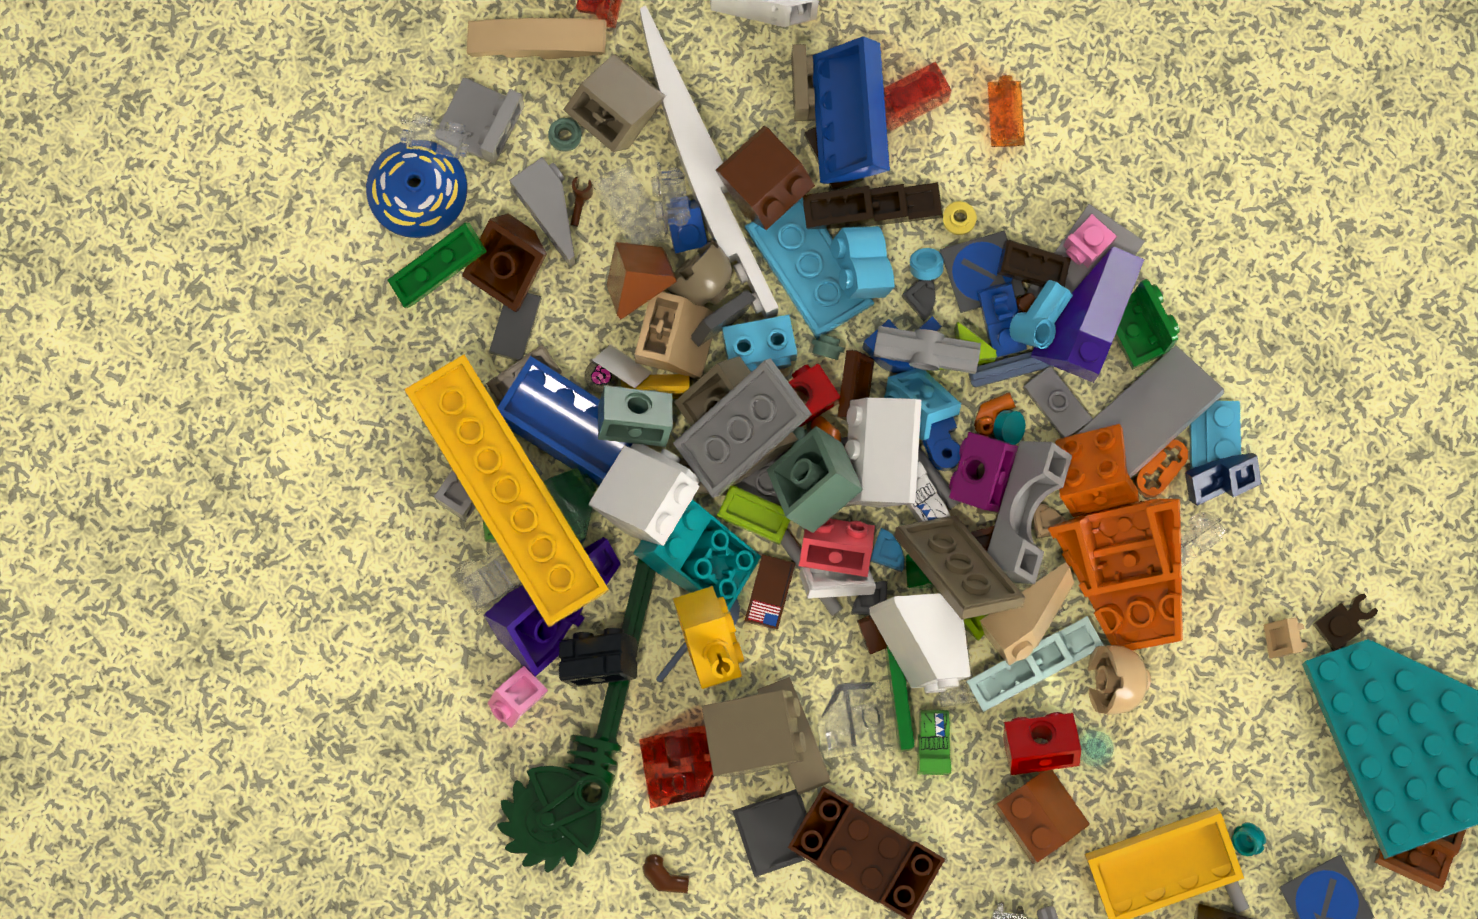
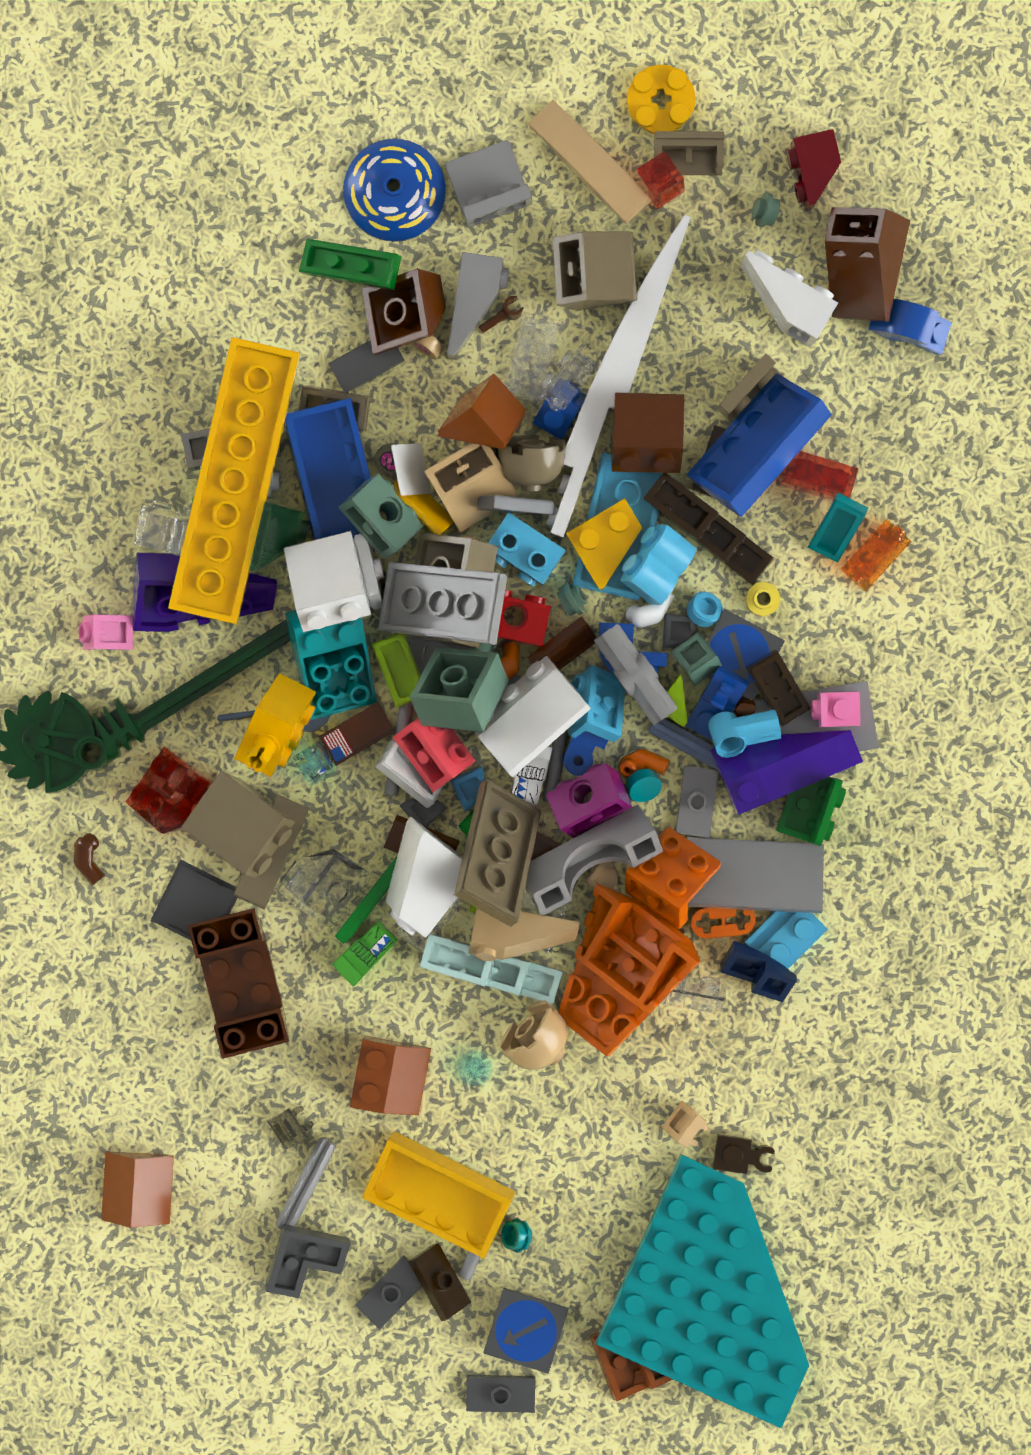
camera: 45 degrees right, 10 degrees up
(423, 131) = (452, 175): clear hinge -> none
(550, 270) = (429, 346): none -> tan tile
(565, 124) = (534, 245): sand green plate -> none
(598, 658) = (186, 663): black brick -> none
(761, 640) = (315, 763): none -> clear light blue leg
(810, 283) = (605, 540): none -> yellow wing
(890, 307) = (648, 614): none -> white arm
(956, 301) = (696, 658): none -> sand green slope
(961, 117) = (838, 527): none -> teal tile
(1028, 756) = (419, 1027): red brick -> none

